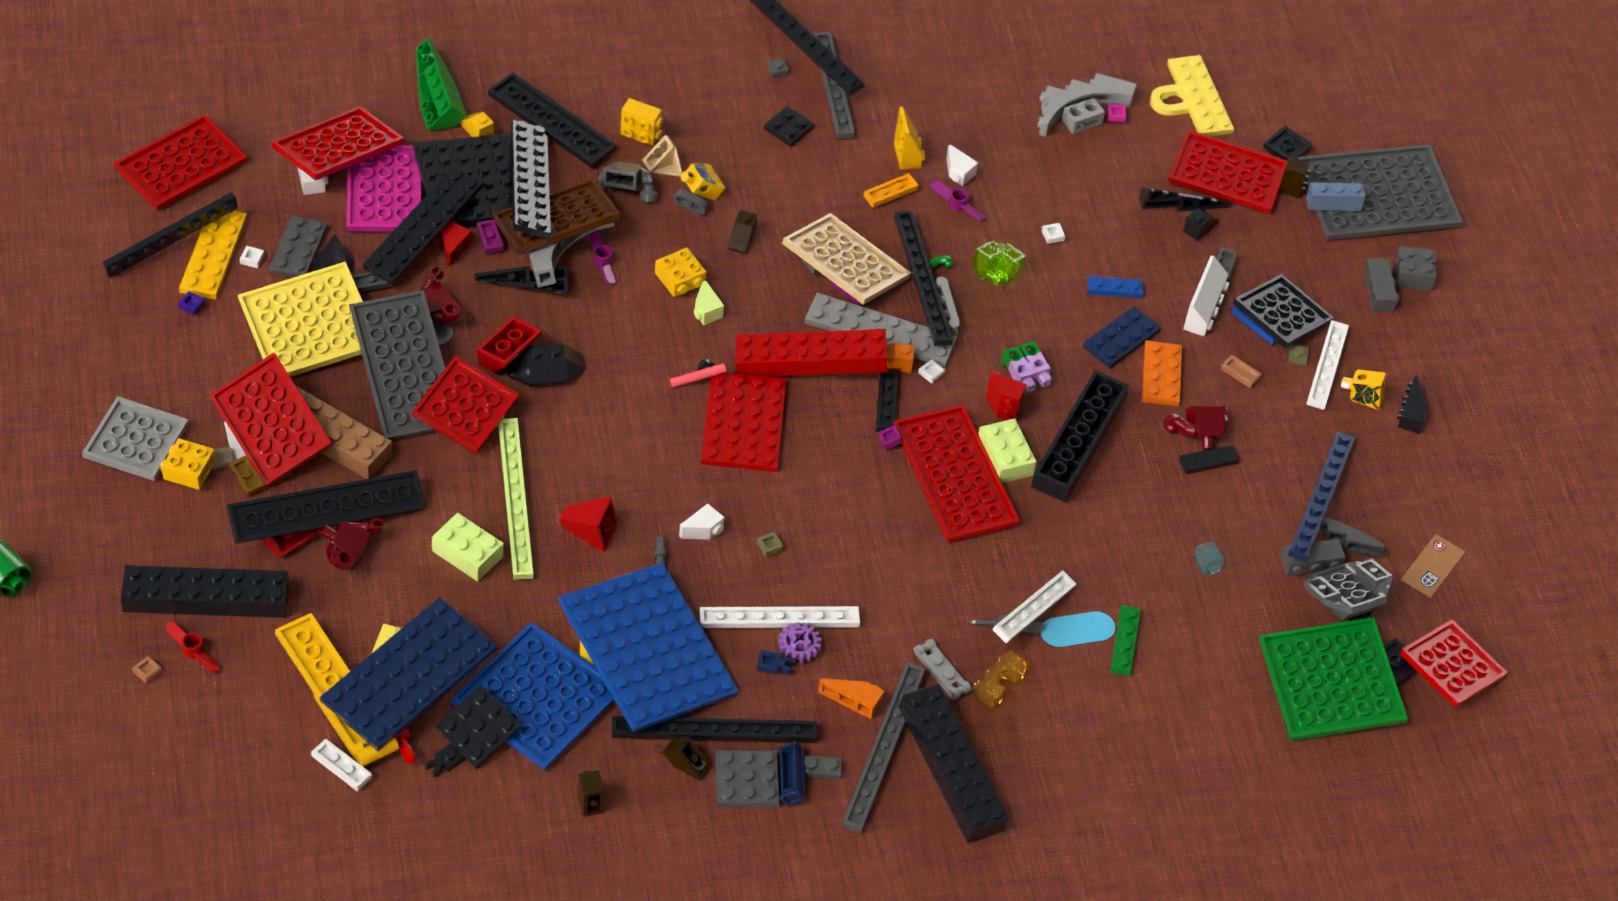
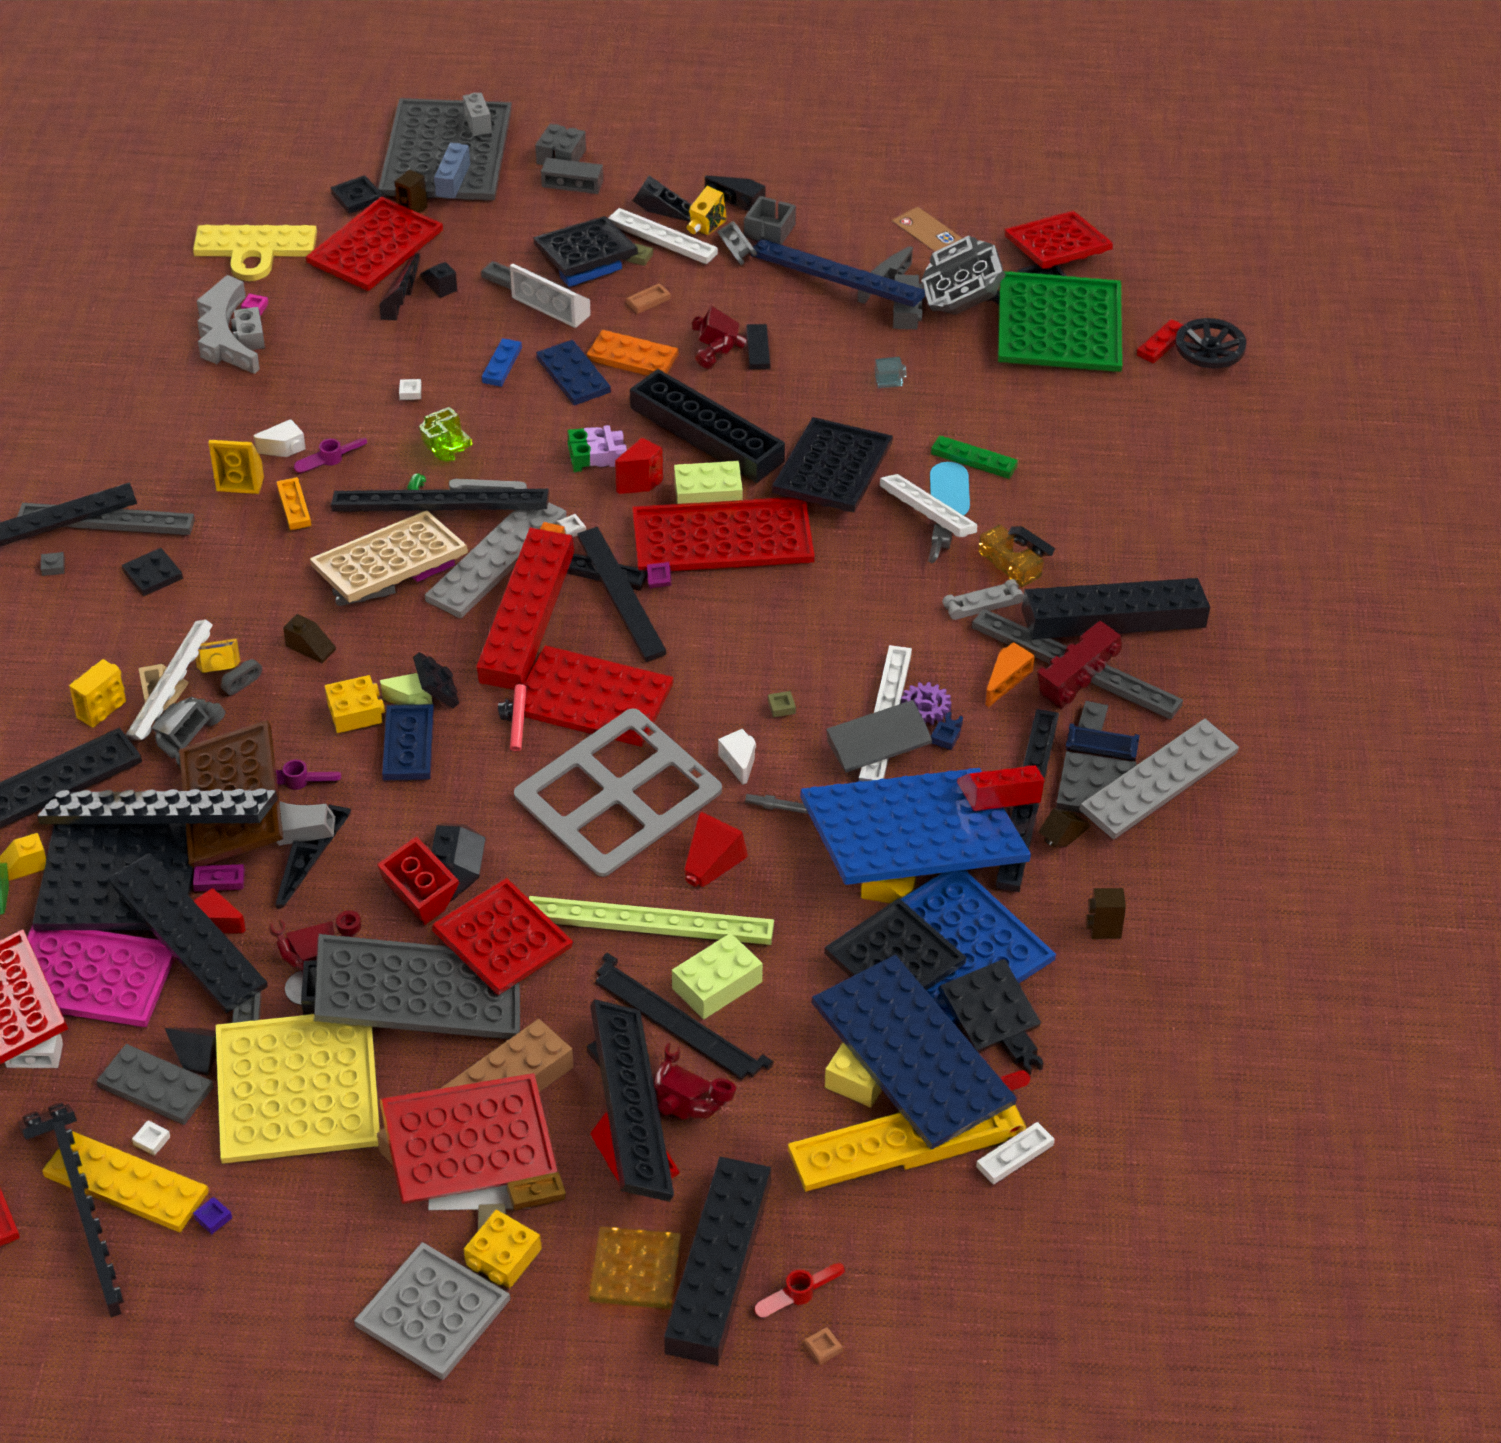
camera: 70 degrees left, 5 degrees down
(192, 543) = (635, 1267): none -> clear yellow plate
(246, 195) = (36, 1124): none -> black plate
(423, 534) = (678, 1022): none -> black piece
(521, 654) = (900, 933): none -> black plate
(640, 453) = (617, 792): none -> light grey window
(655, 315) = (408, 742): none -> dark blue plate
(669, 157) = (165, 687): none -> white plate
(704, 698) = (1002, 787): none -> red slope
(718, 314) = (436, 679): none -> black plate
(743, 610) = (878, 736): none -> dark grey slope
(762, 820) = (1158, 778): none -> light grey plate
(858, 416) = (622, 594): none -> black tile
(867, 738) = (1079, 664): none -> dark red wedge
(1015, 689) = (1026, 538): none -> black plate
(1066, 533) = (832, 464): none -> black plate
(1341, 419) = (736, 241): none -> dark grey hinge
(1348, 770) = (1160, 342): none -> red plate
(1353, 804) = (1210, 347): none -> black wheel
(1375, 350) = (661, 200): none -> black slope
(1376, 435) = (762, 221): none -> dark grey piece
(1422, 197) = (477, 114): none -> light grey brick

